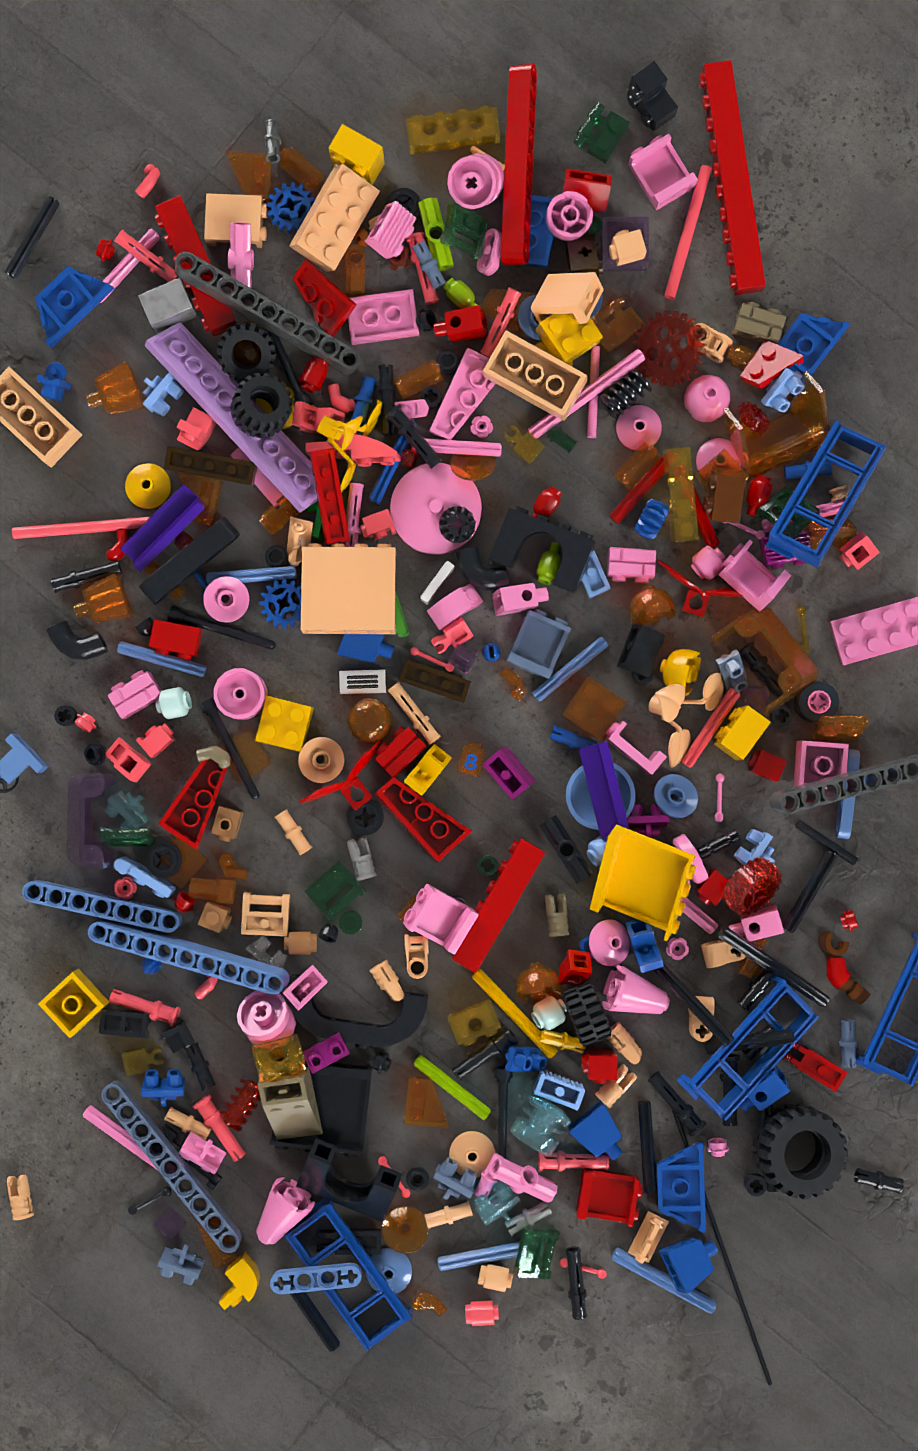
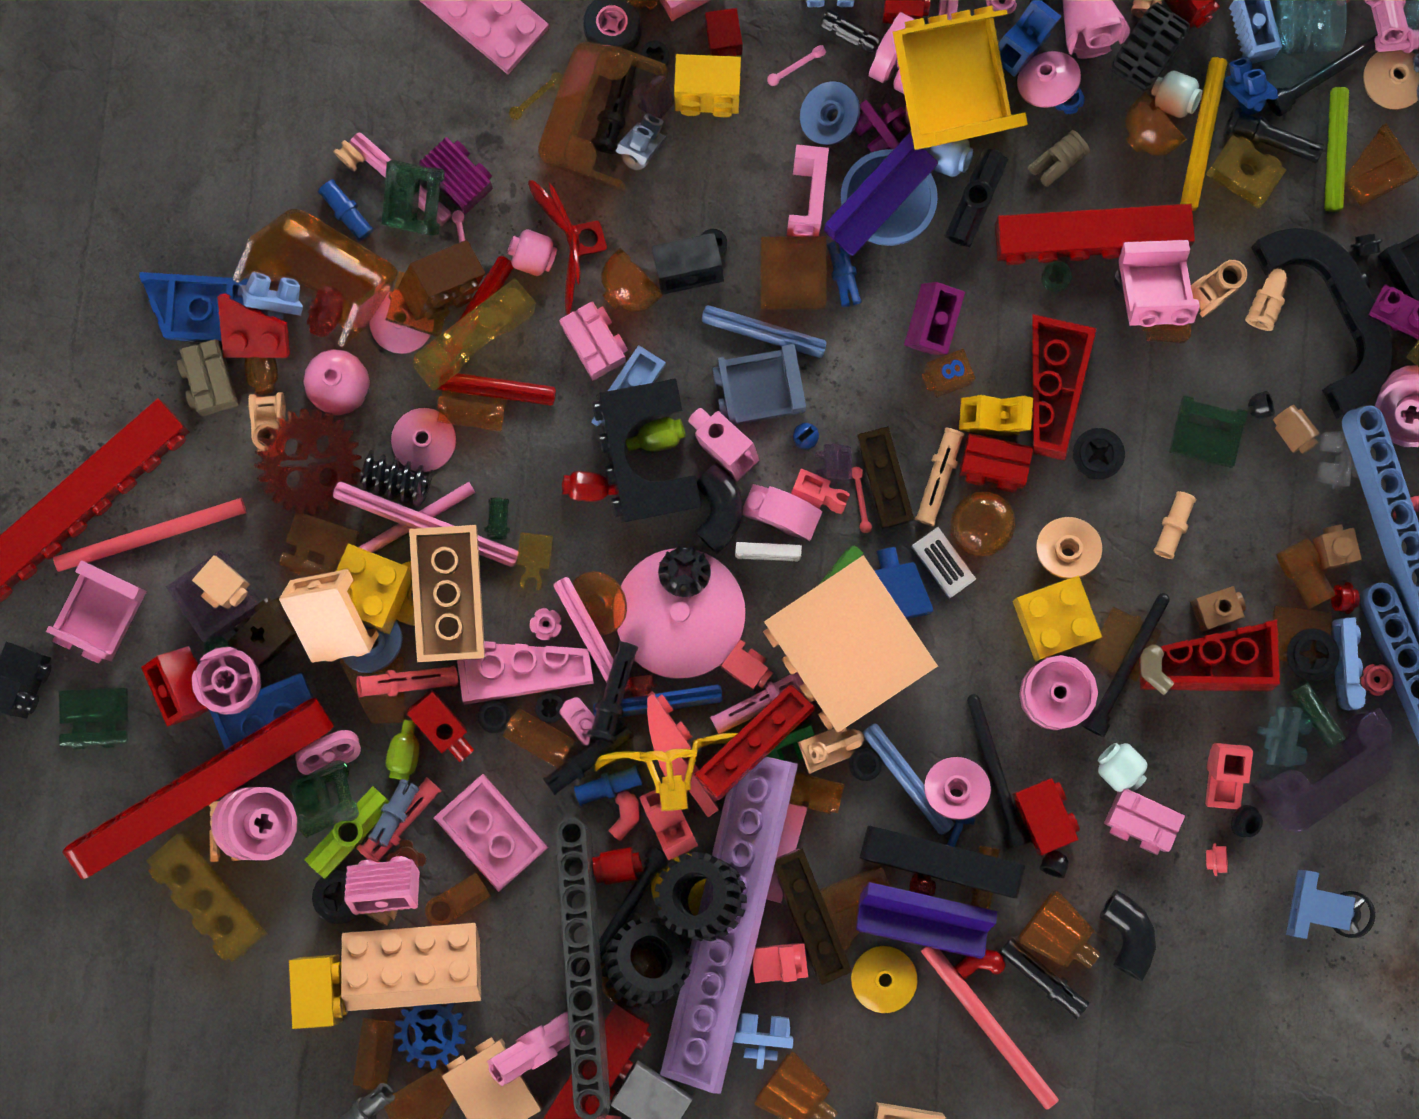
camera: 125 degrees left, 5 degrees down
(58, 718) = (1230, 880): black bush -> none
(157, 739) = (1179, 759): coral brick -> none
(163, 660) = (1075, 804): medium blue axle -> none
(230, 869) = (1267, 571): clear orange arm -> none
(265, 922) = (1301, 487): light nougat plate -> none
(279, 613) = (918, 731): blue gear -> none
(305, 987) = (1347, 384): bright pink slope -> none
(326, 300) = (515, 914): red wing -> none
(350, 922) = (1231, 389): clear green tile -> none
(352, 780) = (1084, 496): red piece -> none
(361, 235) = (407, 918): dark orange hinge -> none
(361, 858) = (1151, 424): light grey hinge -> none
(425, 320) = (461, 775): black plate -> none
(515, 680) = (821, 383): clear orange arm -> none
(562, 1041) = (1197, 59): yellow axle -> none
(575, 968) = (1105, 96): red brick -> none
(651, 519) = (525, 349): blue gear -> none
(667, 704) = (730, 180): light nougat plant -> none
(681, 668) = (681, 202): yellow cylinder -> none
(710, 728) = (723, 127): coral axle -> none
(751, 577) = (517, 188): bright pink panel -> none
(758, 493) = (411, 247): red plant -> none
(789, 547) = (457, 167): blue piece -> none
(817, 532) = (397, 135): clear orange tile -> none
(864, 554) = (404, 90): coral brick -> none

